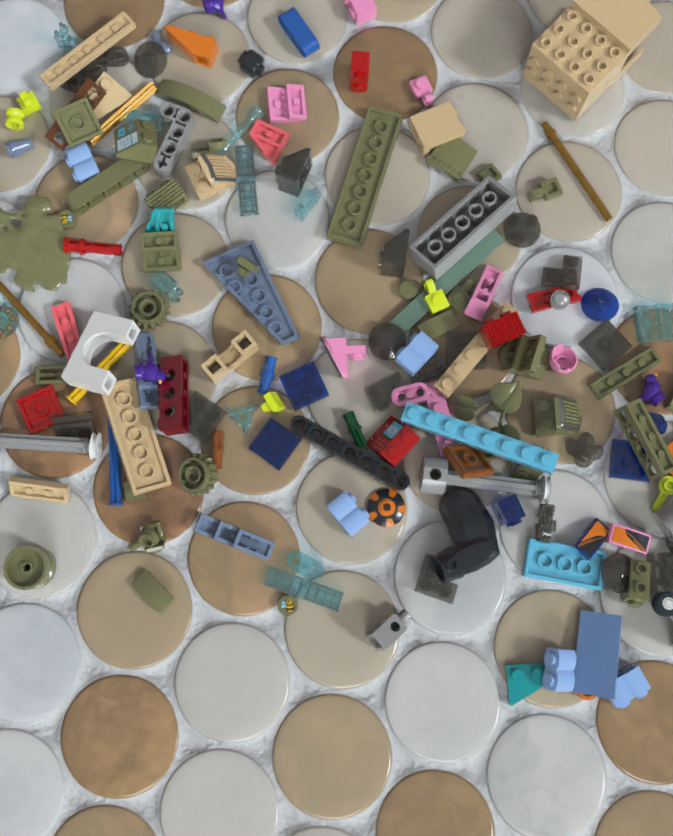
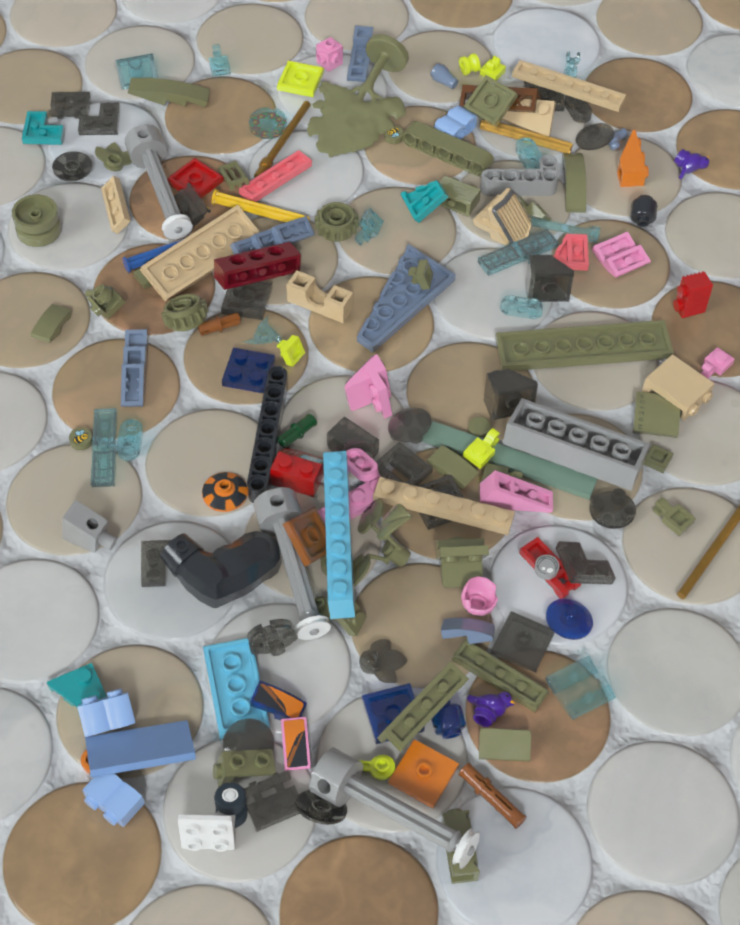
camera: 65 degrees right, 25 degrees down
(83, 247) = (373, 154): red pin -> none
(99, 330) = (292, 188): white arch -> none
(136, 141) = (500, 149): olive slope -> none
(149, 371) = (270, 232): dark purple animal -> none
(160, 251) = (400, 210): olive slope -> none
(267, 374) = (319, 336): blue pin -> none
(298, 32) = (704, 237): blue beam -> none
(304, 386) = (322, 371): clear blue plate -> none
(348, 513) = (201, 454): light blue brick -> none
(416, 353) = (407, 448): light blue brick -> none
(502, 330) = (473, 509): red brick -> none
(508, 511) = (270, 594): clear blue brick -> none
(556, 416) = (409, 616): olive piece -> none
(585, 378) = (475, 630): none -> sand blue slope

